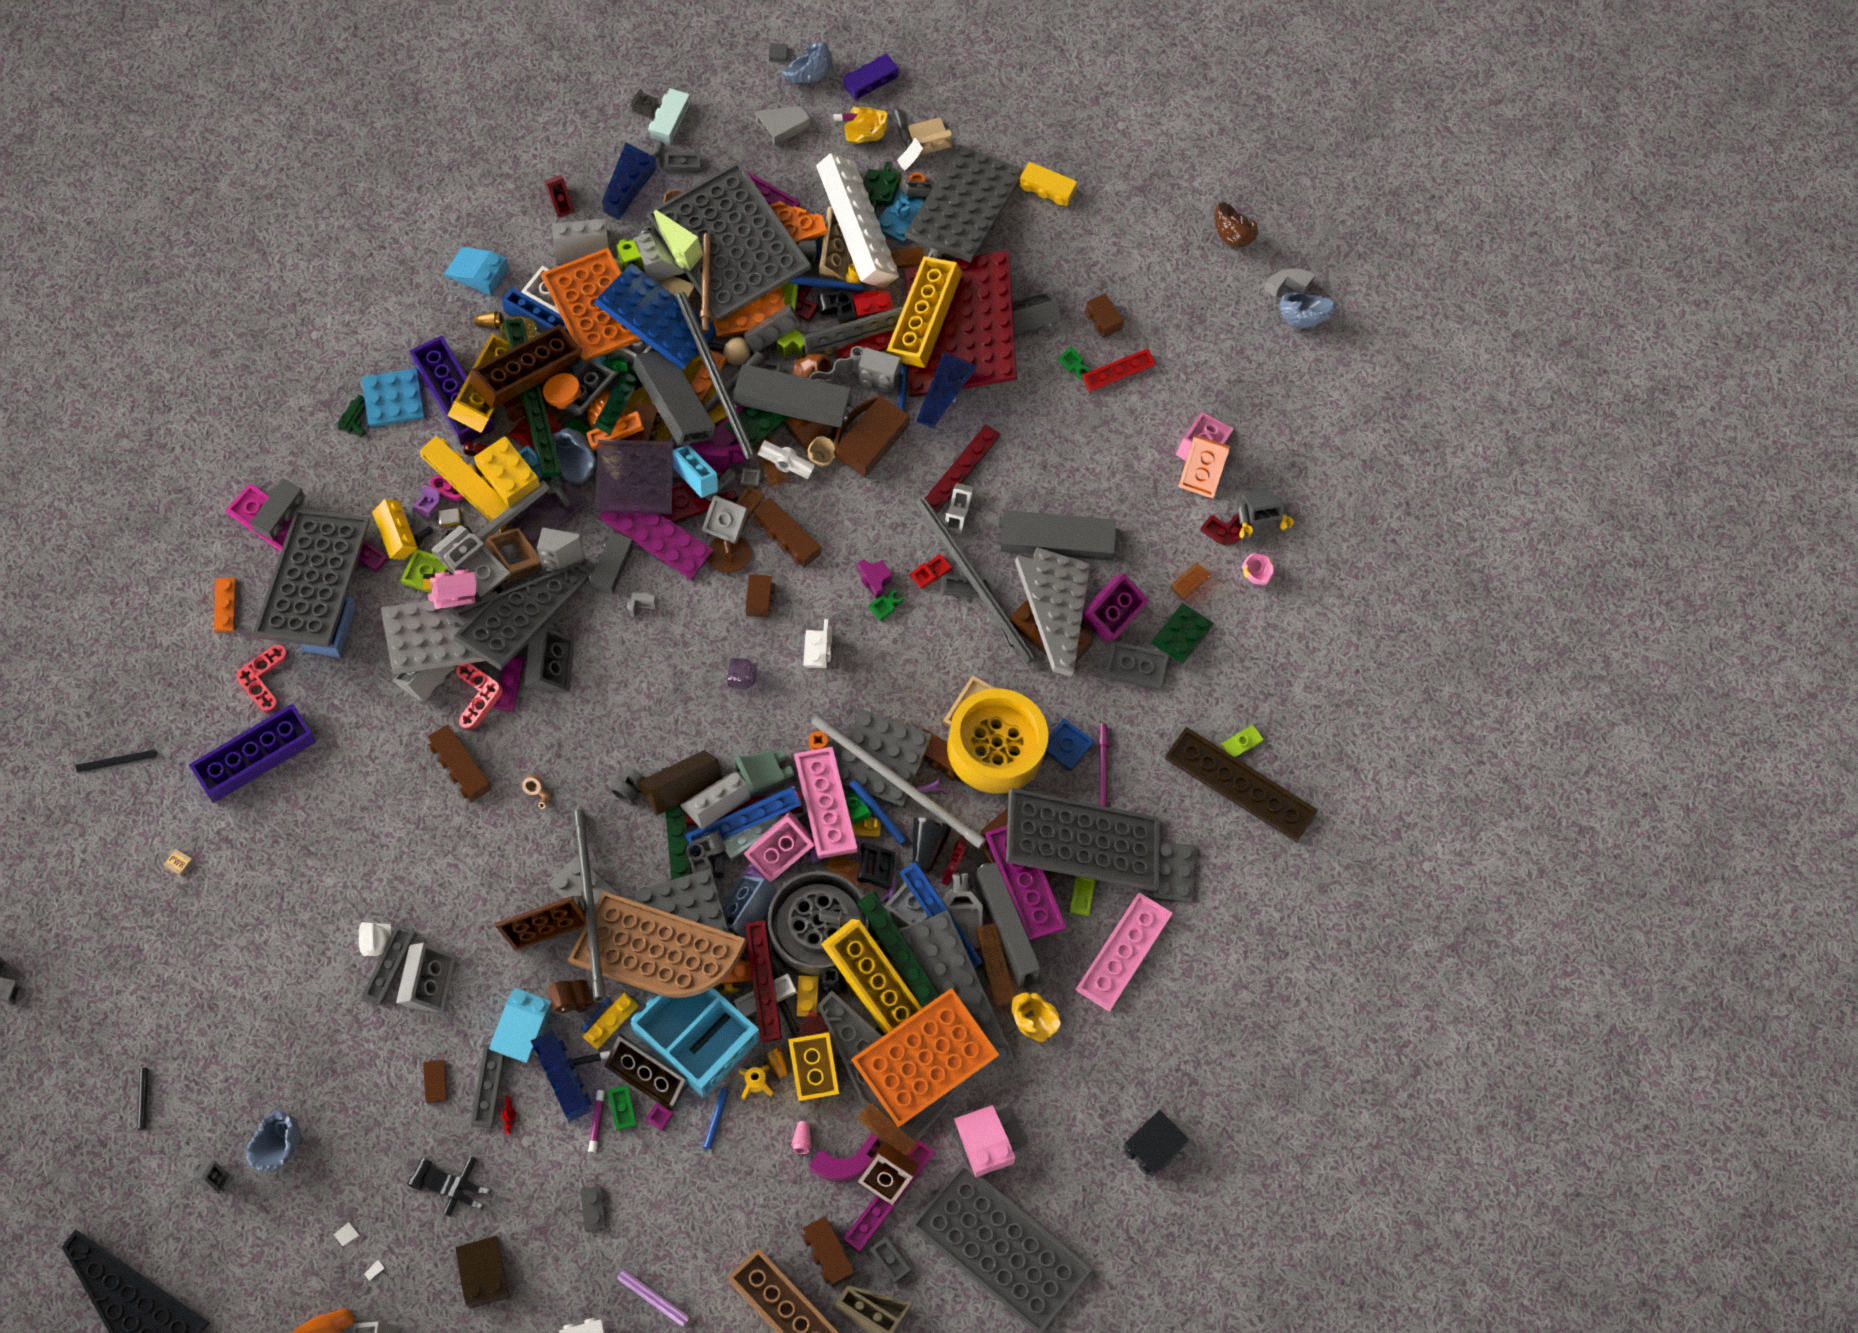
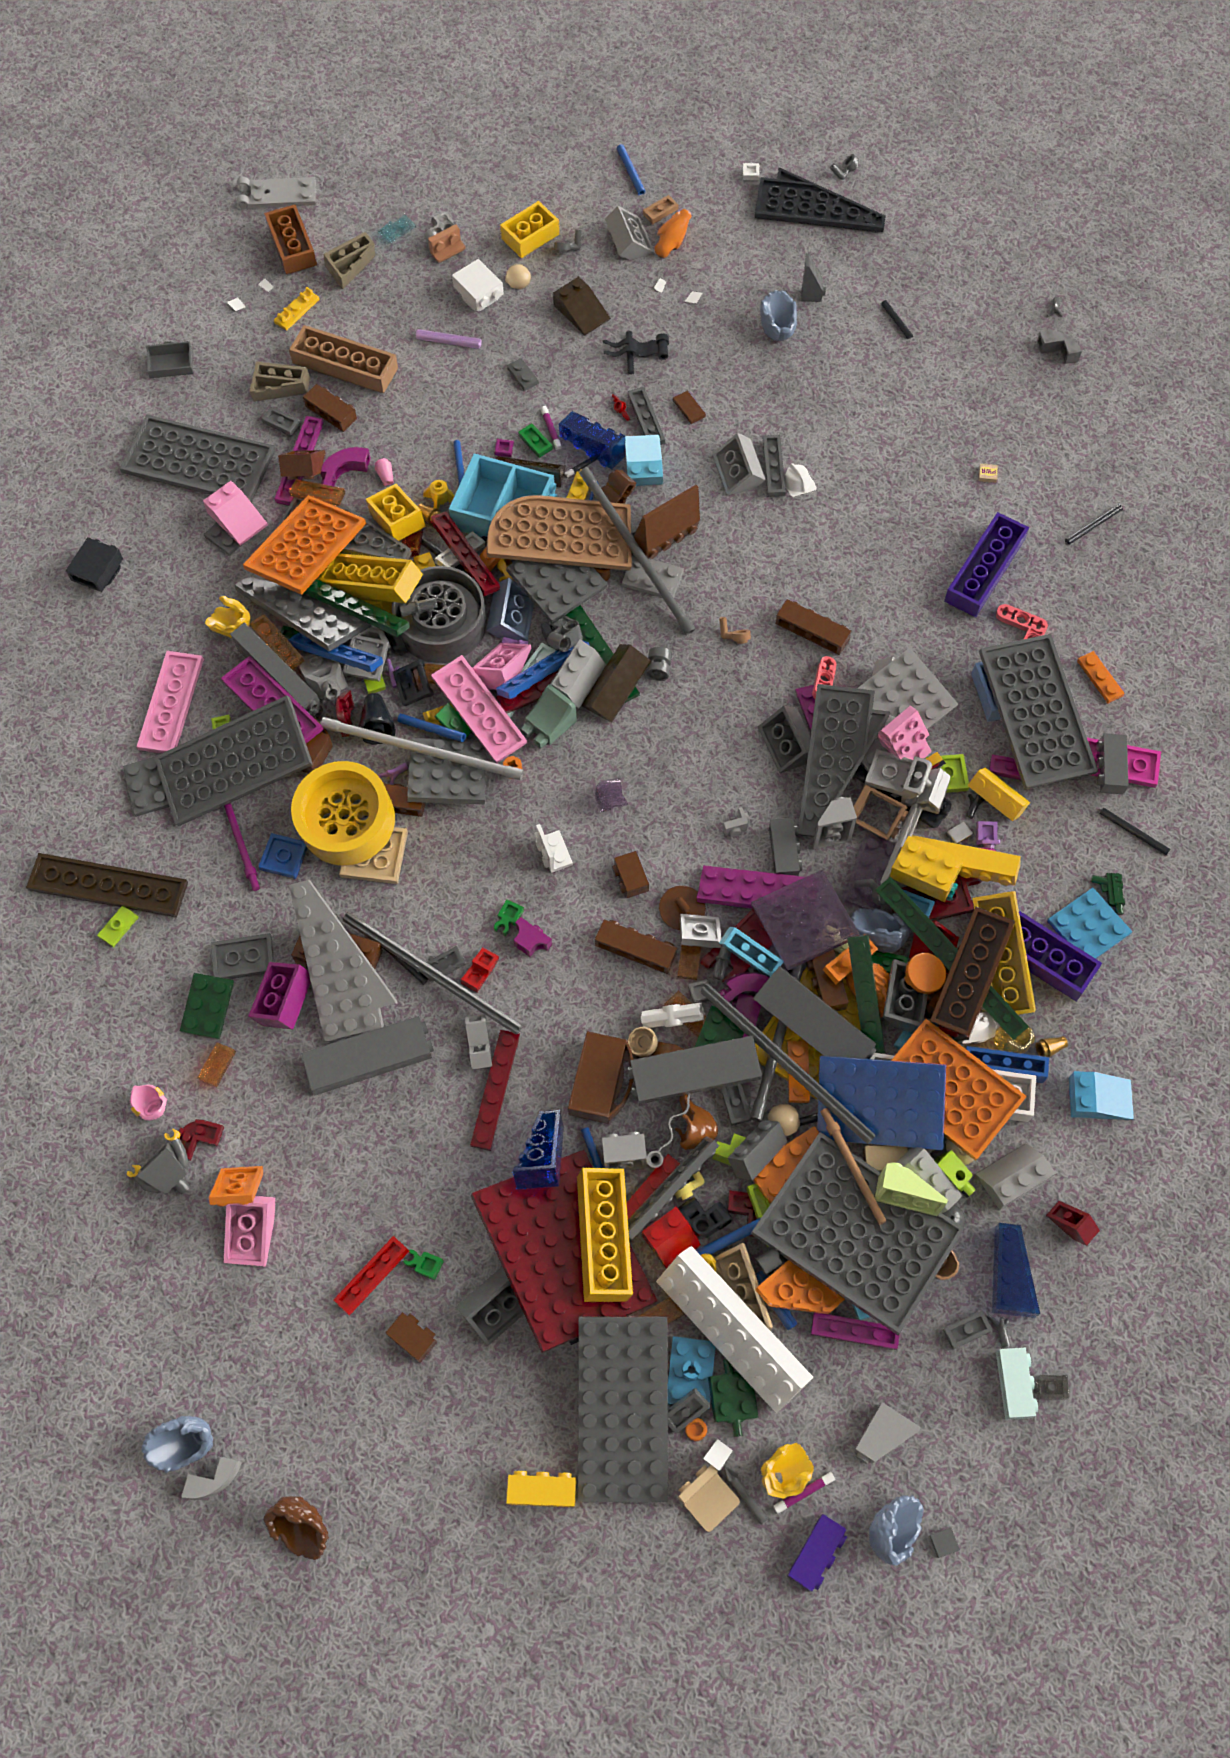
camera: 160 degrees right, 0 degrees up
(297, 457) = (1135, 831): none -> black bar
(616, 363) = (893, 1039): green plate -> none

